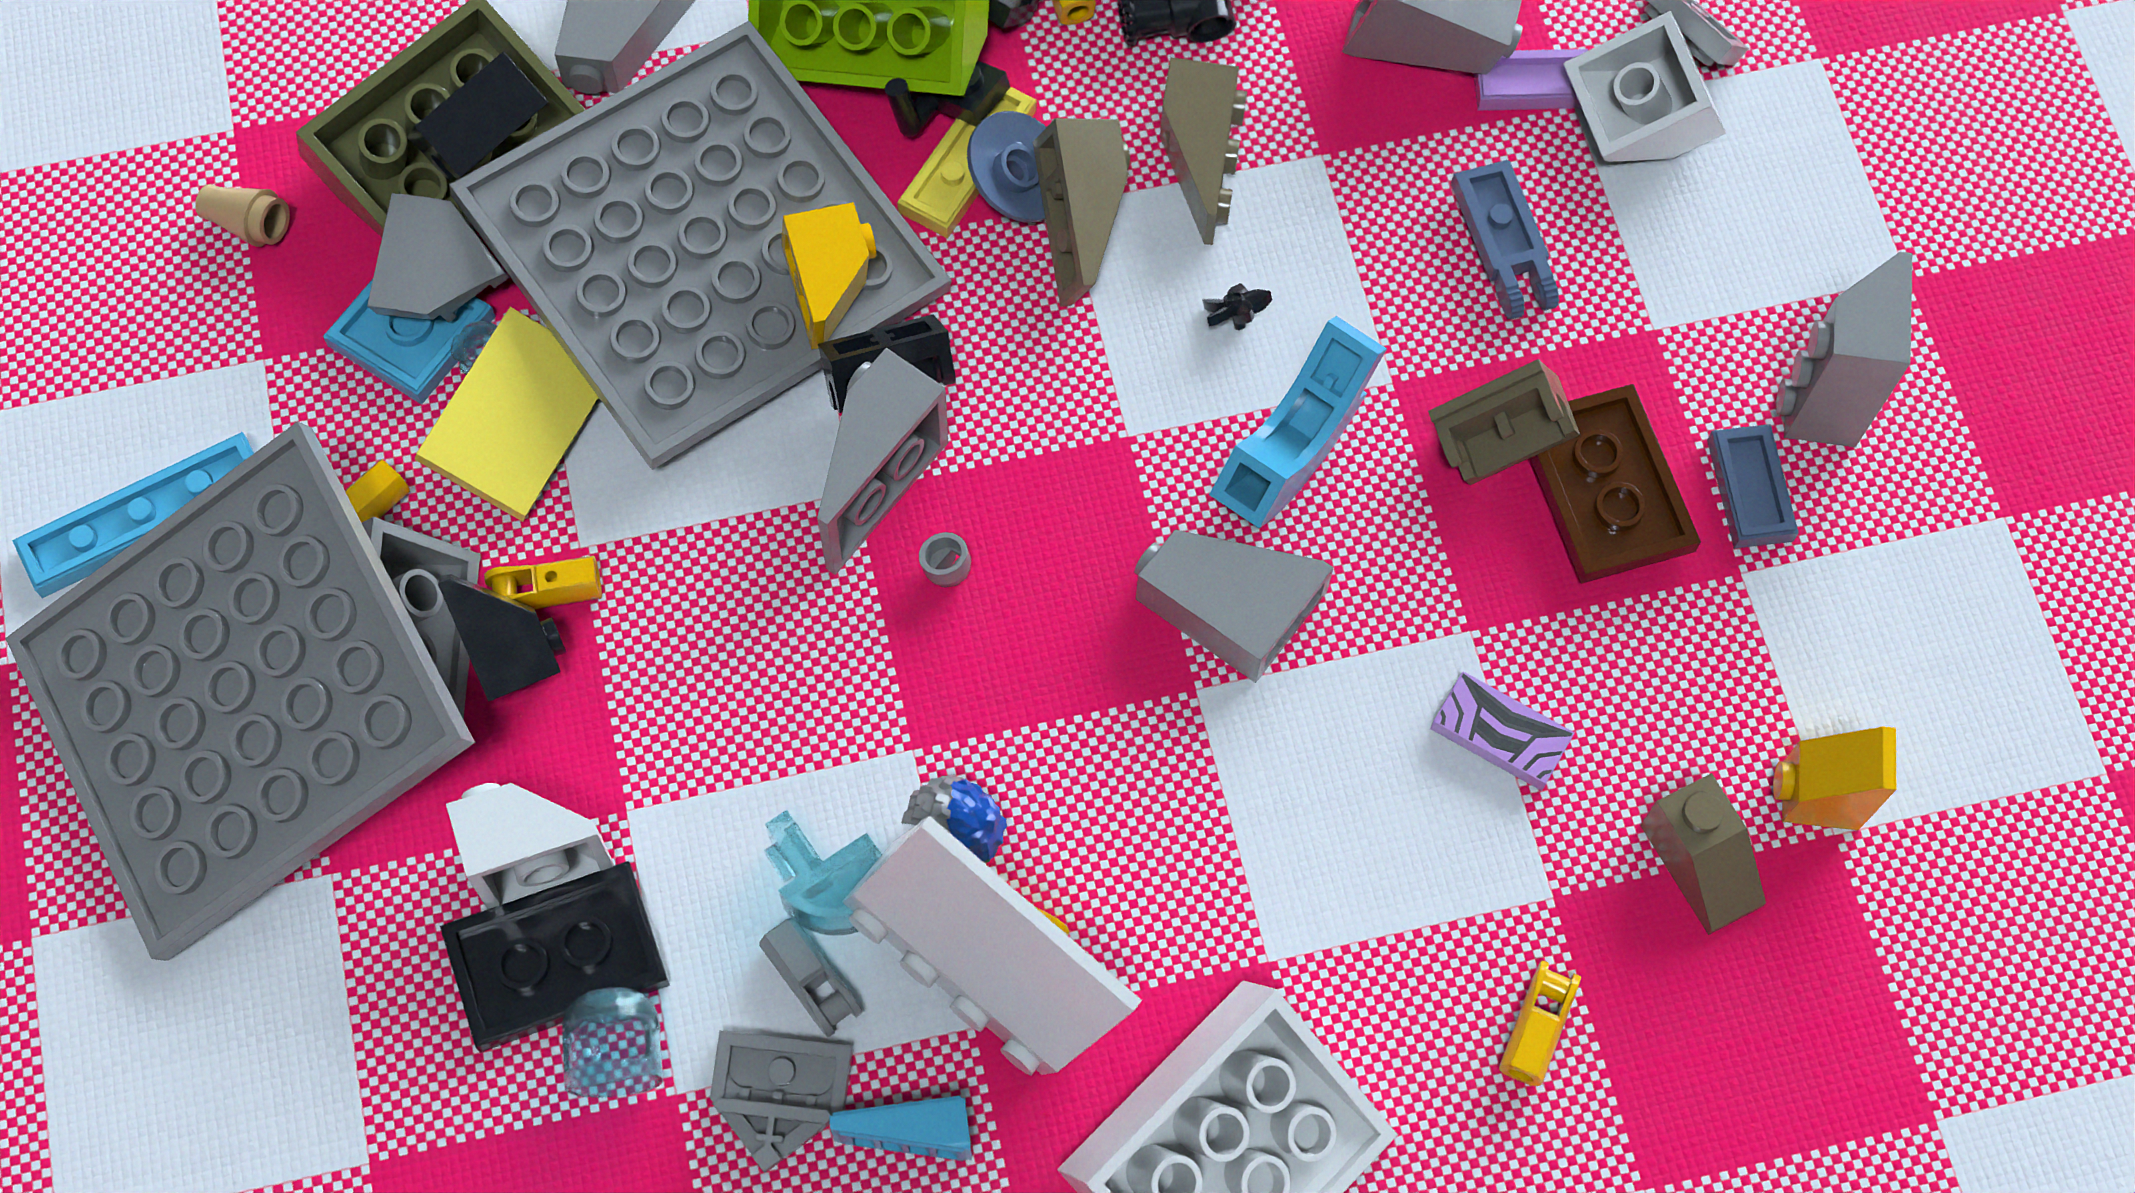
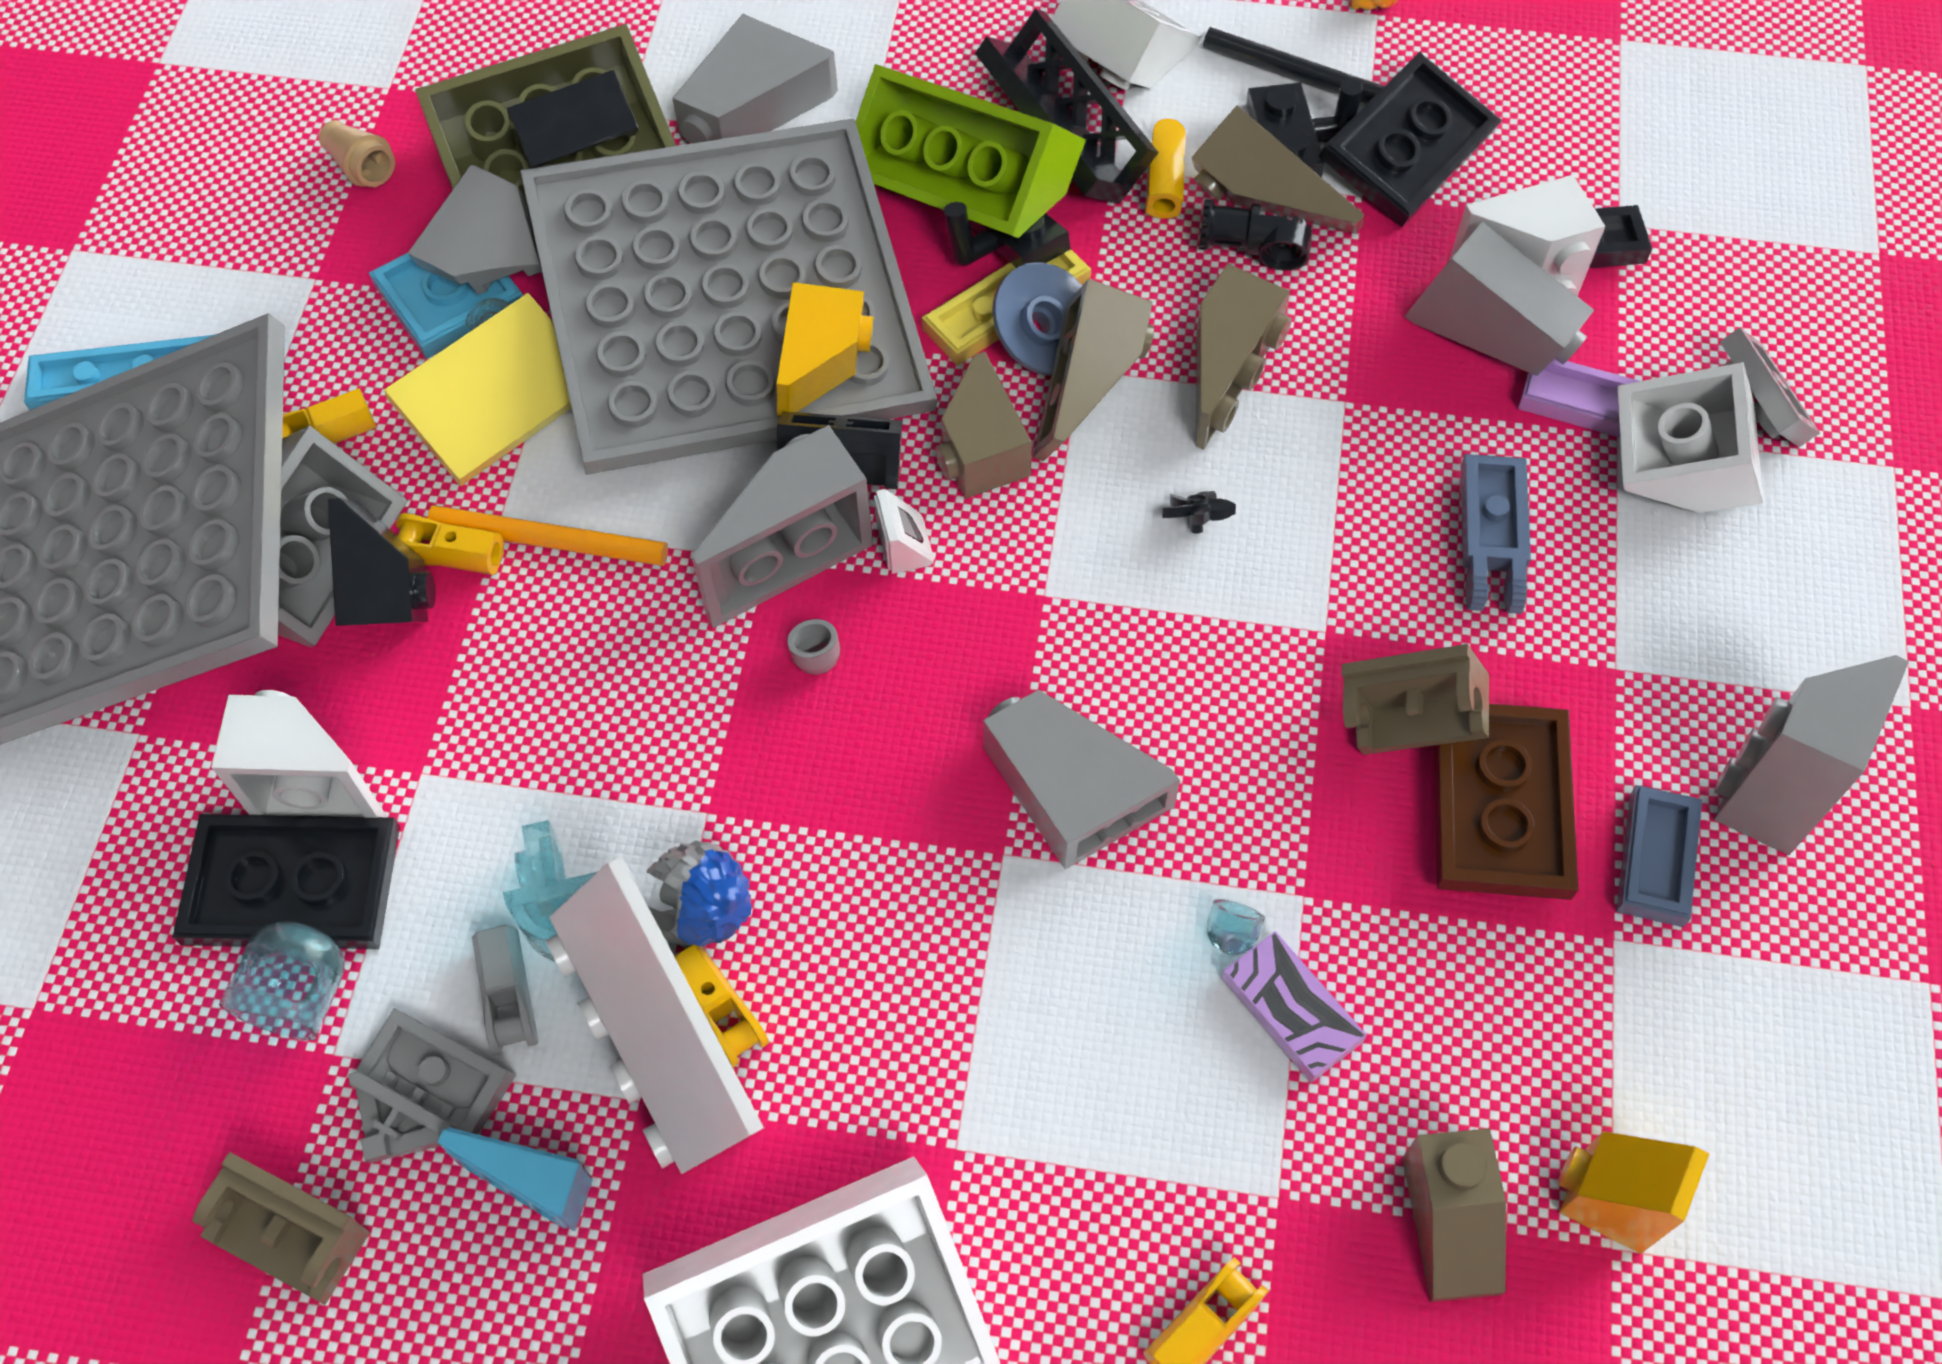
camera: 25 degrees right, 5 degrees down
(643, 539) = (557, 536): none -> light orange bar
(975, 425) = (901, 533): none -> white slope
(1011, 300) = (983, 434): none -> dark tan slope
(1302, 430) = (1180, 660): medium azure arch -> none
(1426, 680) = (1233, 926): none -> clear light blue hinge

